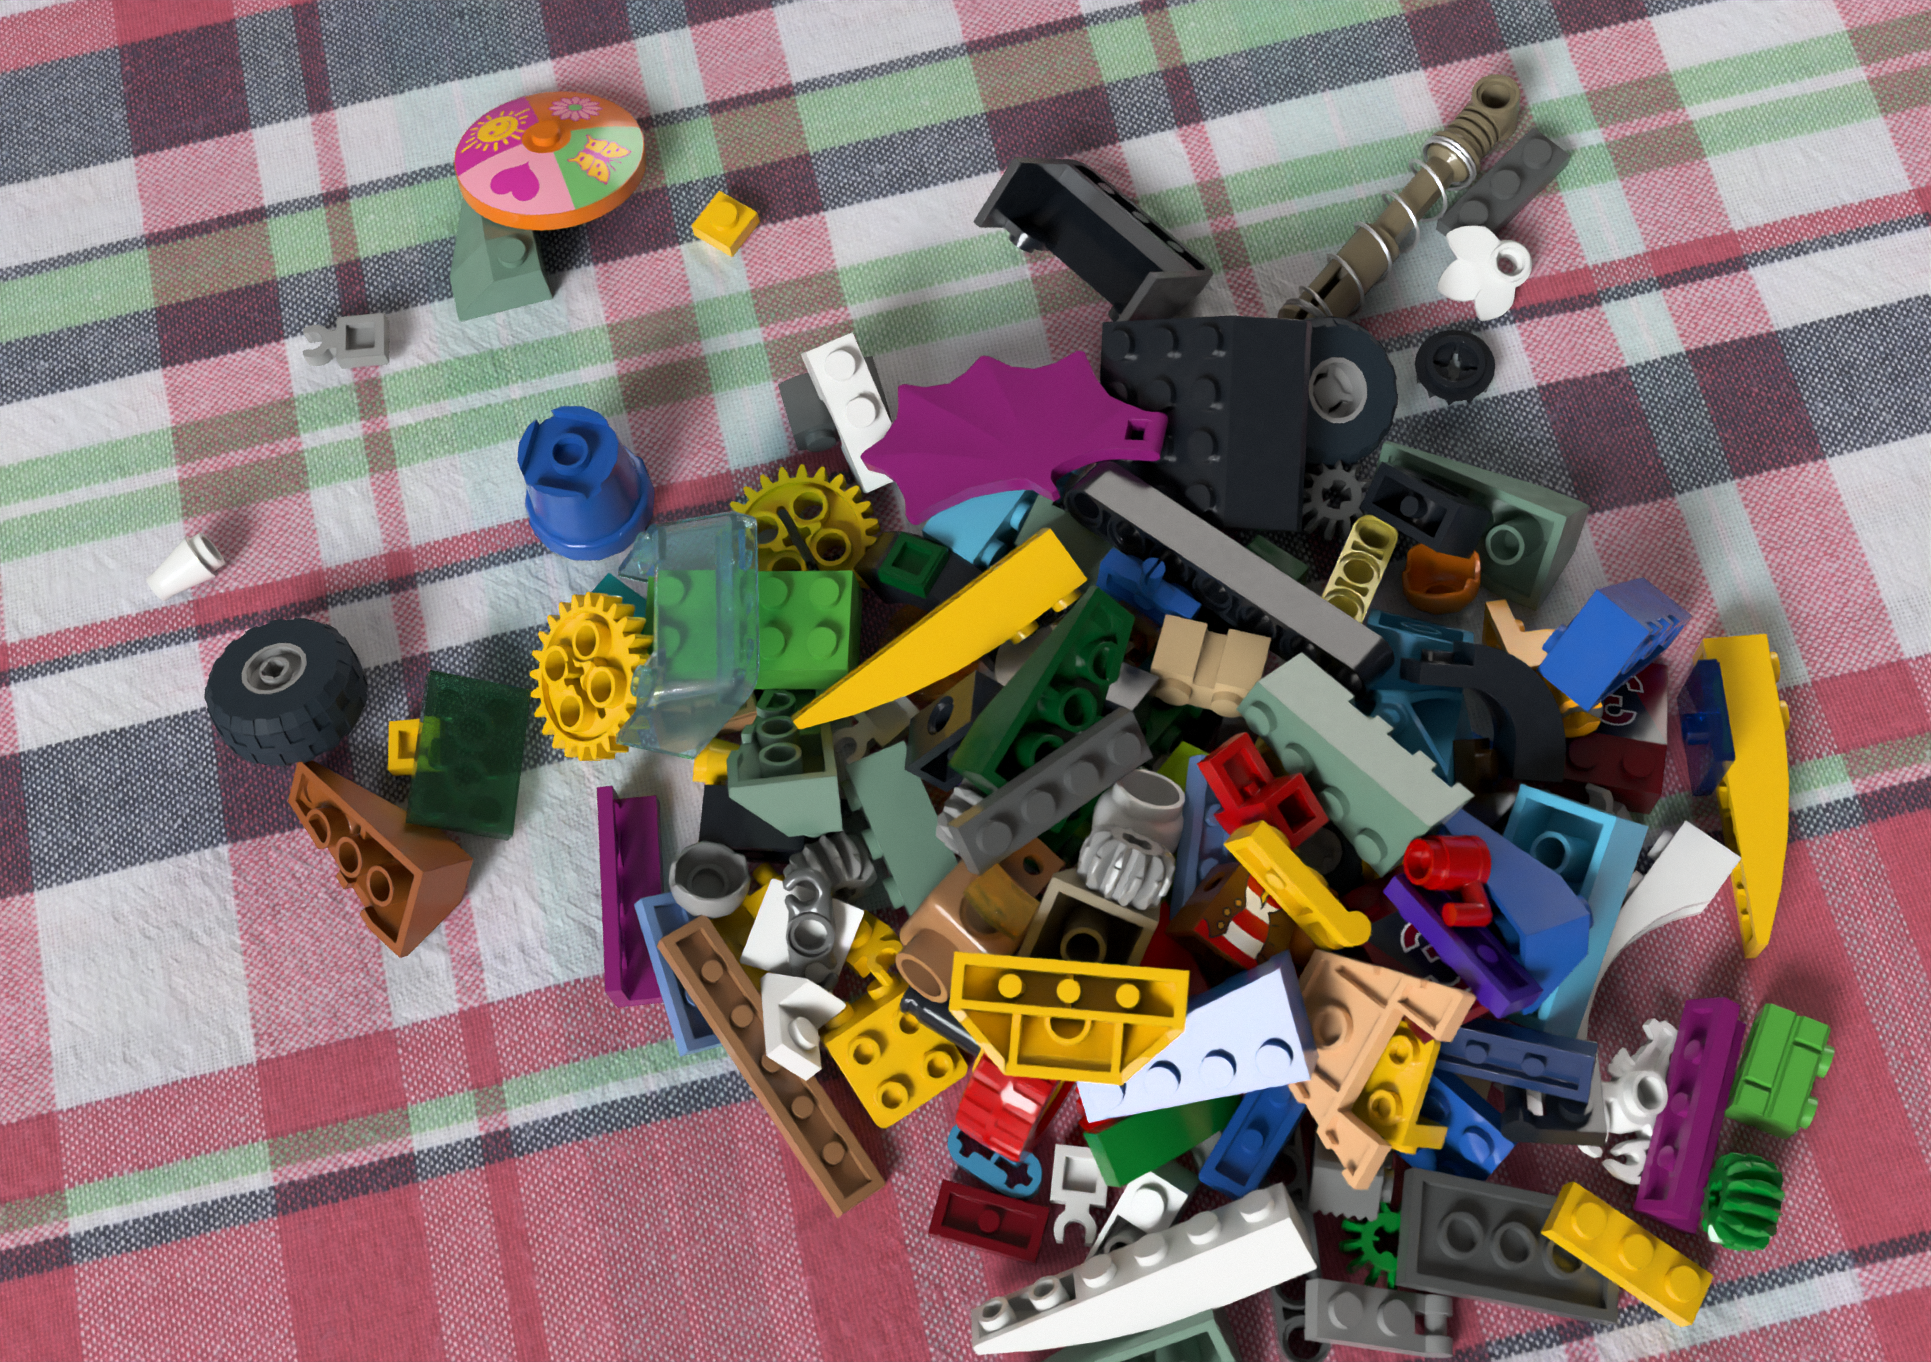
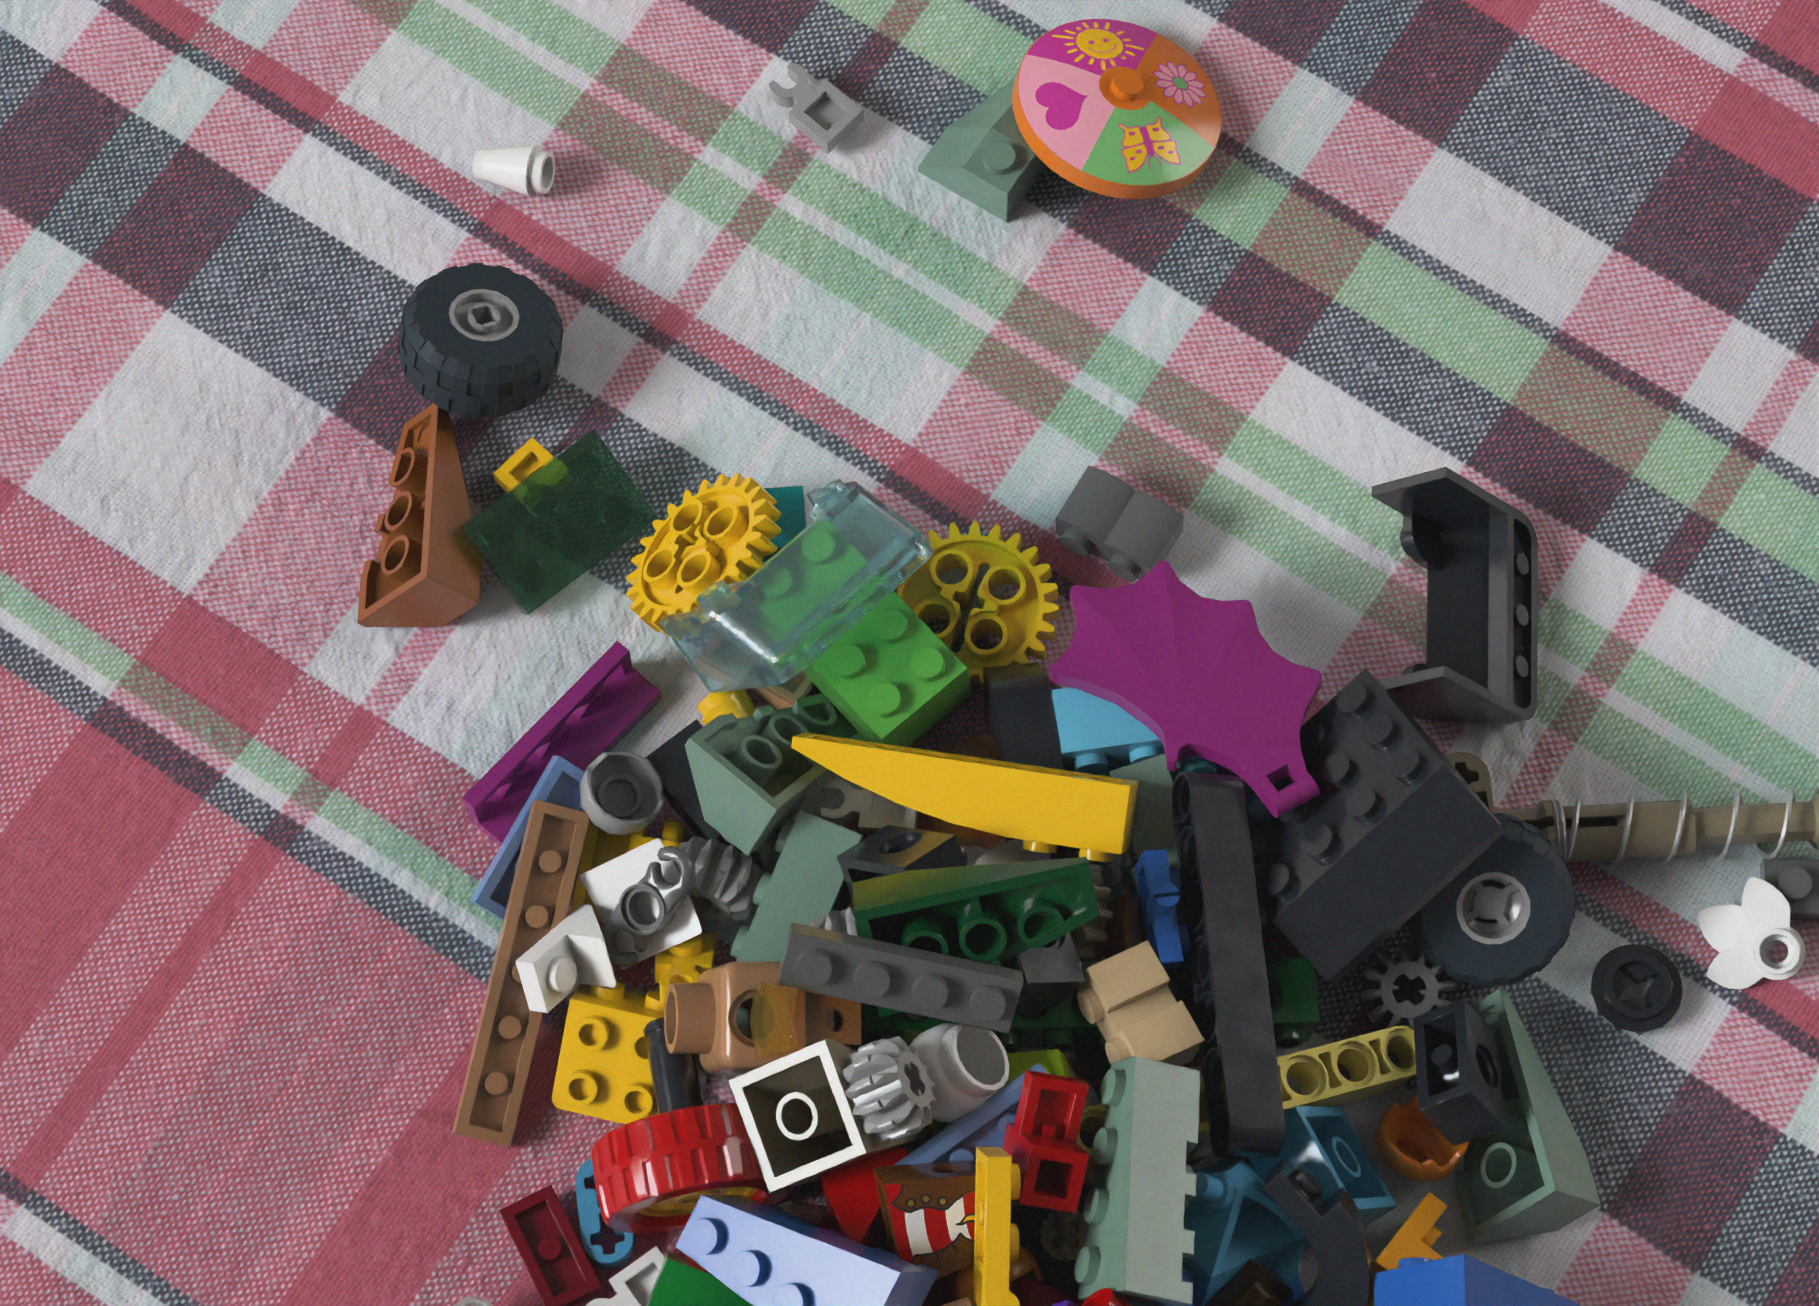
camera: 40 degrees right, 0 degrees up
(583, 485) = (858, 400): blue piece -> none
(725, 223) = (1200, 293): yellow plate -> none
(853, 402) = (1119, 529): white arch -> none
(913, 564) = (1015, 710): dark green tile -> none
(1067, 1015) = (725, 1145): yellow wedge -> none

